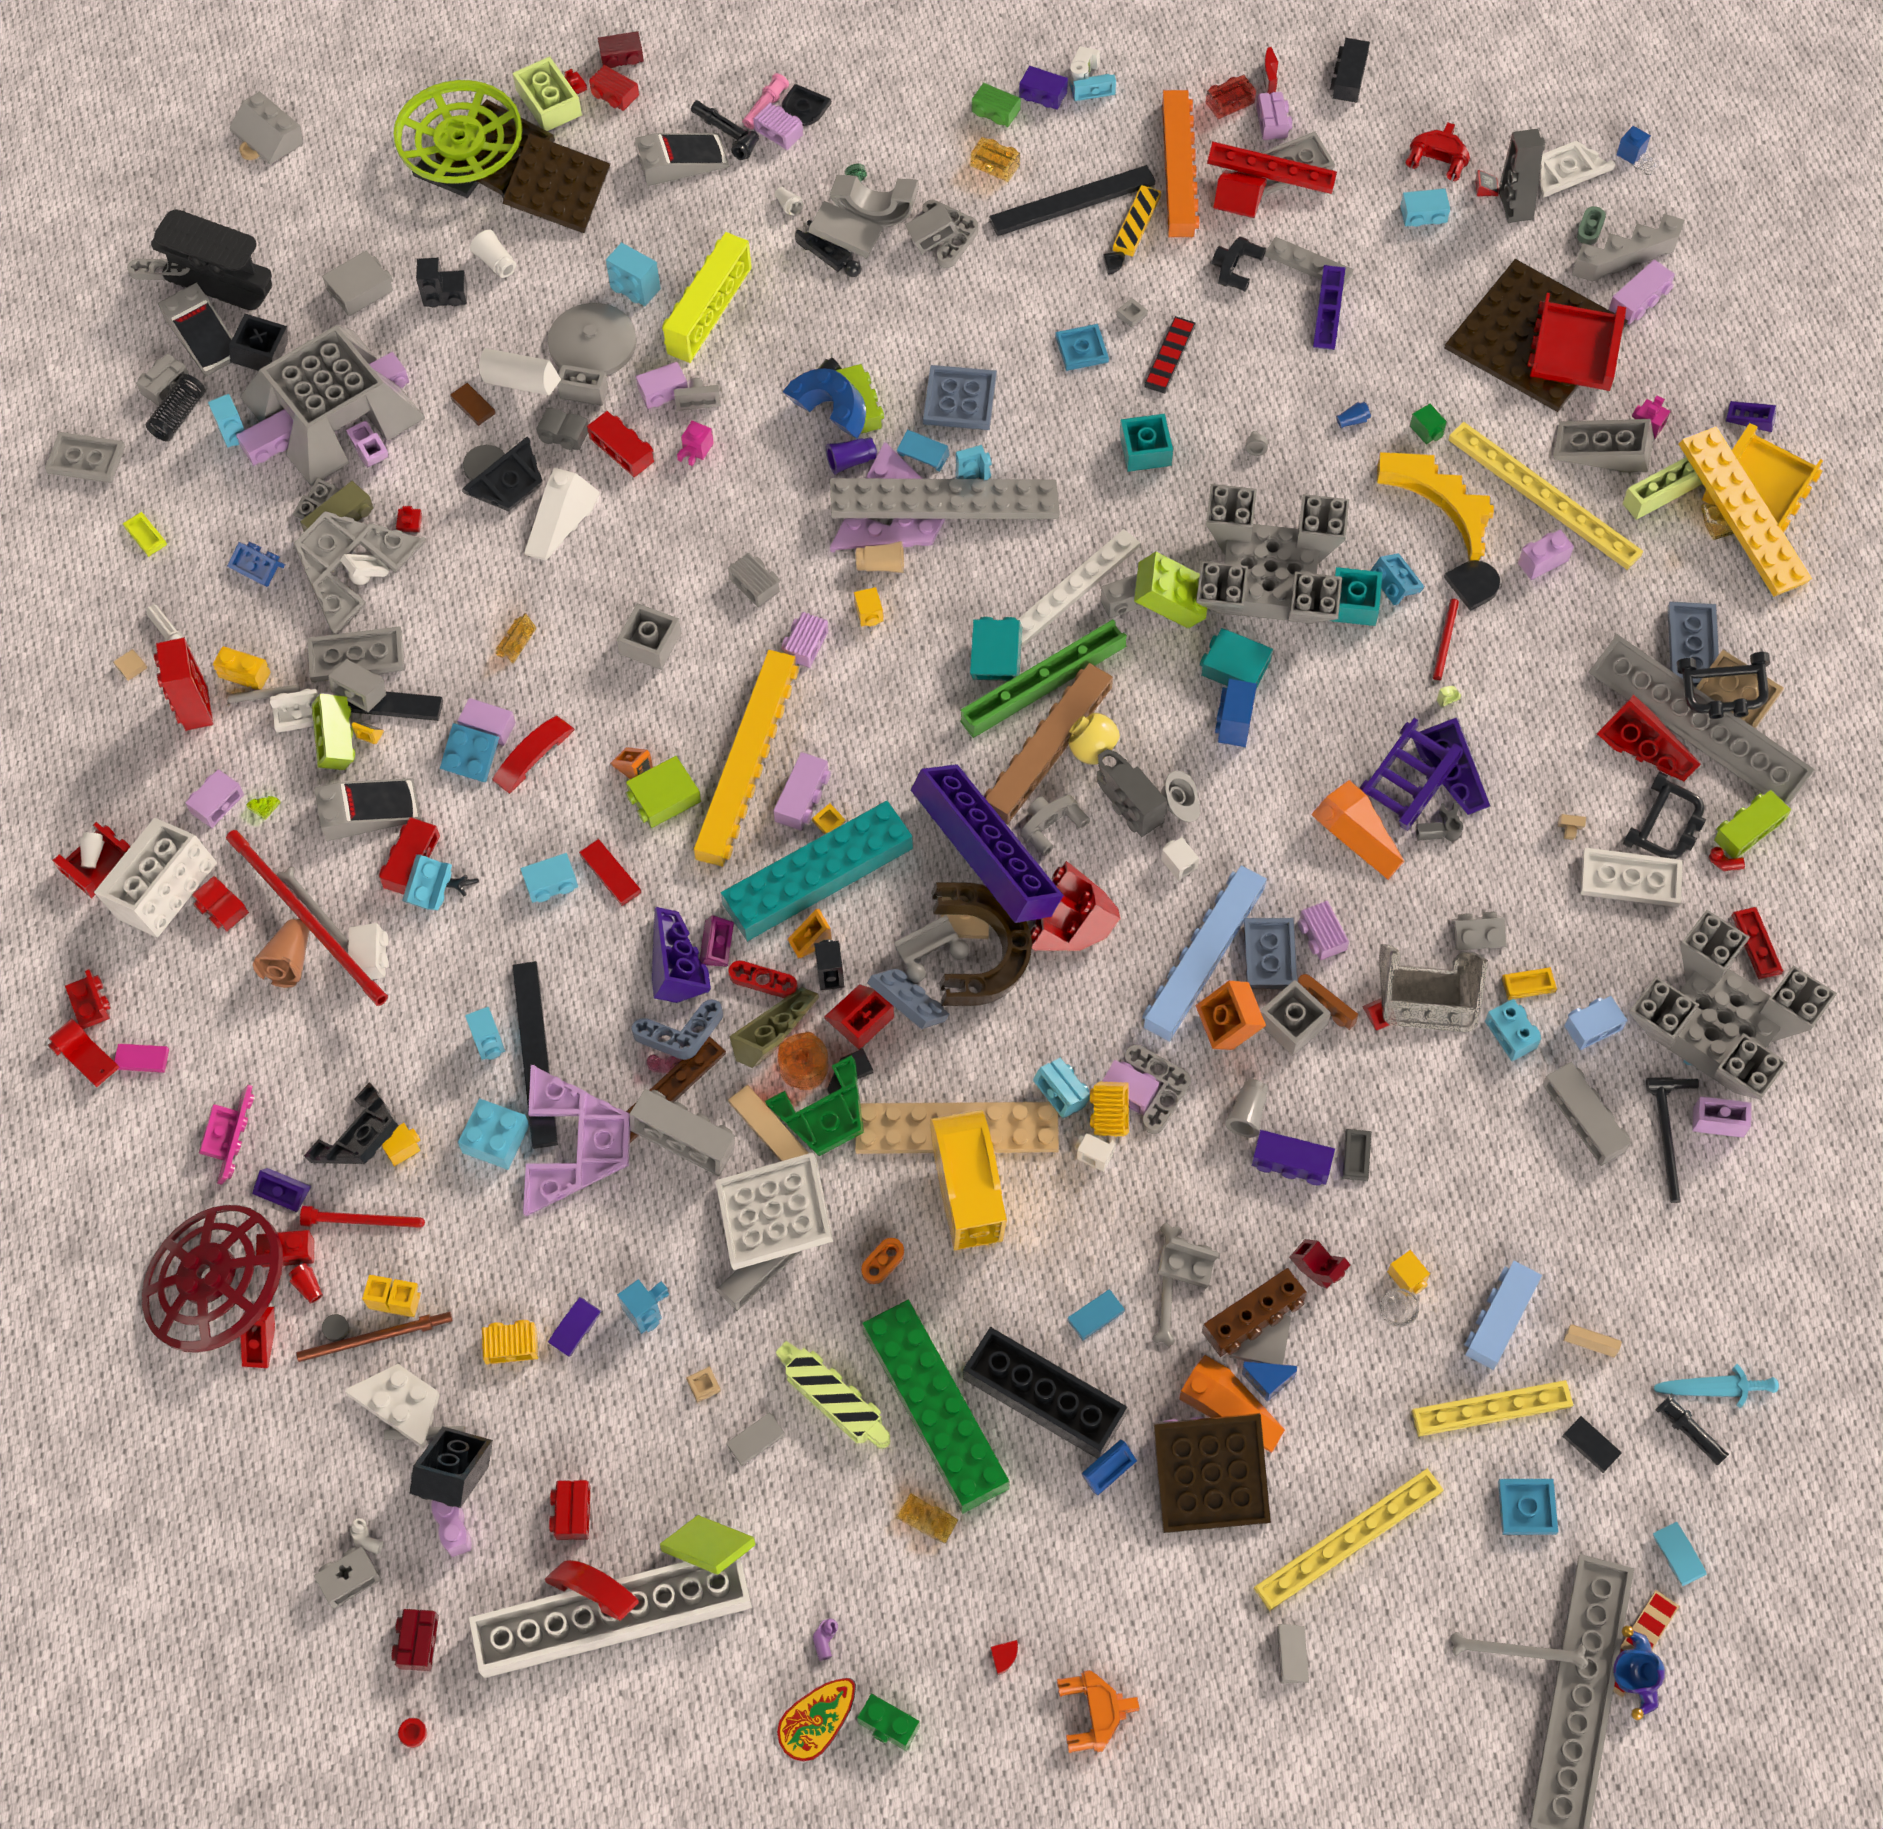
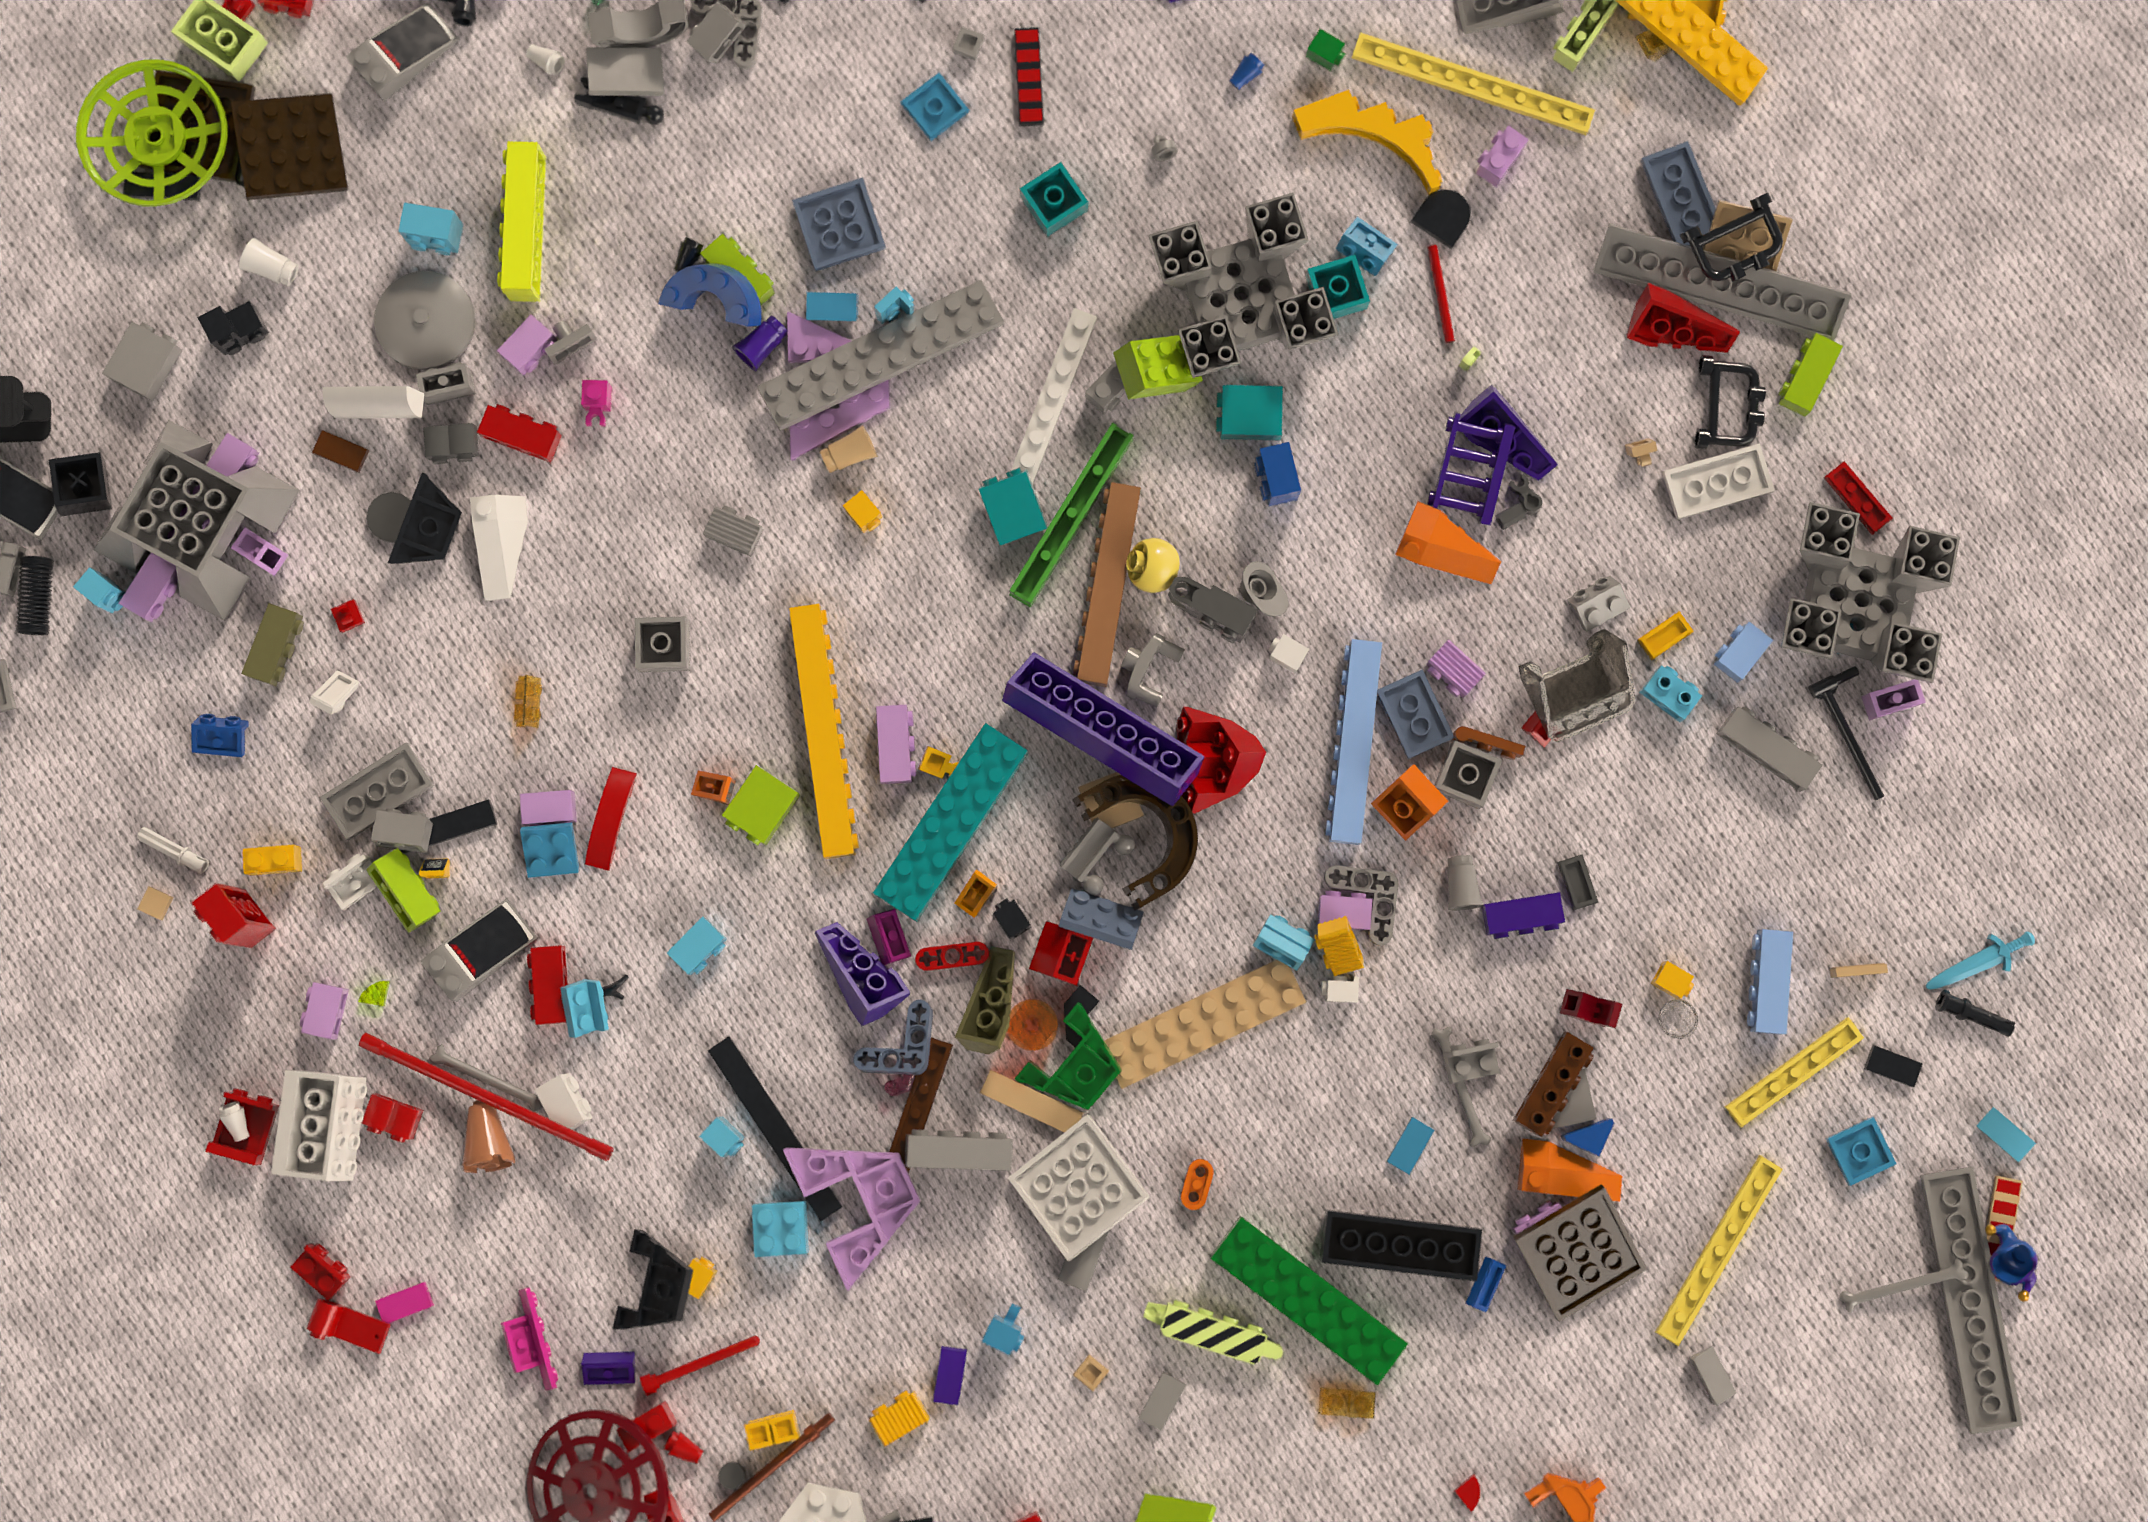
camera: 25 degrees left, 20 degrees up
(144, 534) = (84, 751): neon yellow tile -> none
(261, 694) = (307, 874): light grey bar -> none
(318, 495) = (240, 636): light grey slope -> none
(324, 546) = (286, 690): light grey wing -> none
(610, 872) = (750, 911): red tile -> none
(806, 638) = (817, 576): lavender brick -> none
(968, 1179) = (1249, 1087): yellow brick -> none
(1724, 863) = (1798, 426): red arm -> none

